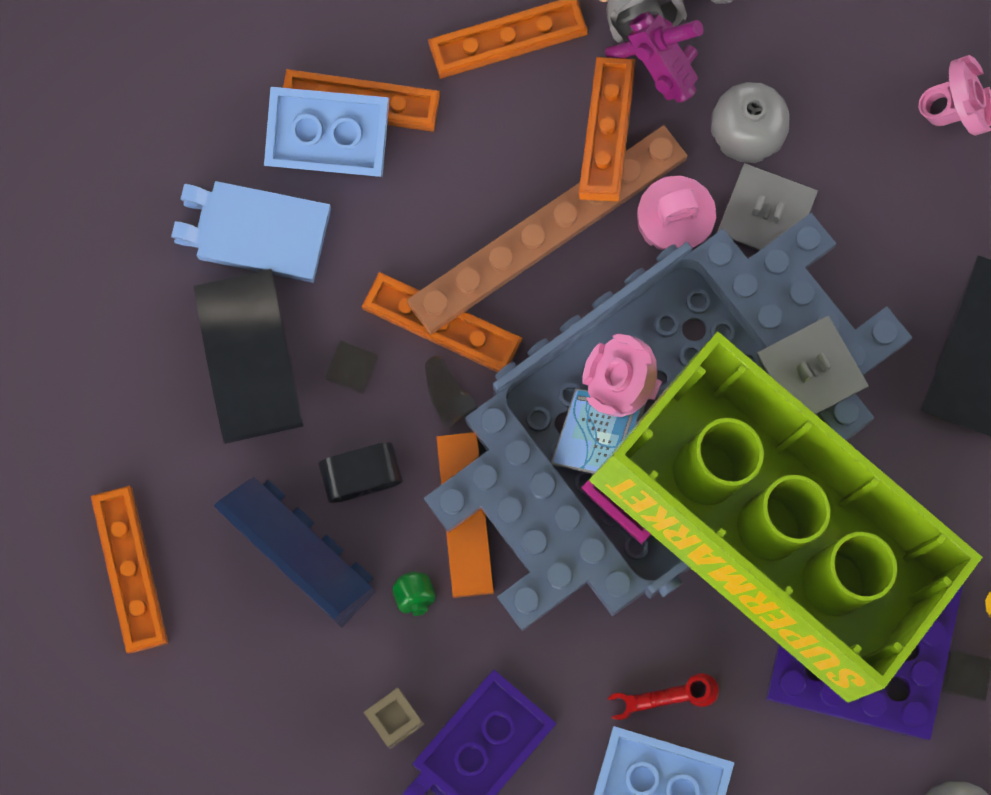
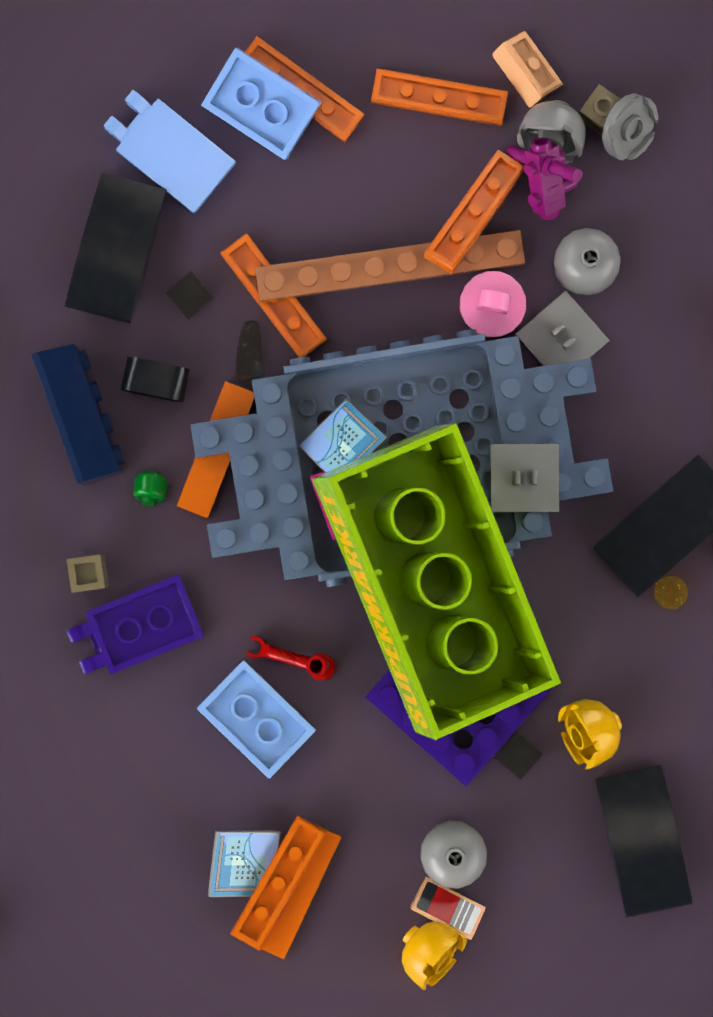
camera: 20 degrees right, 10 degrees up
(621, 376) = (380, 410): bright pink tile -> none

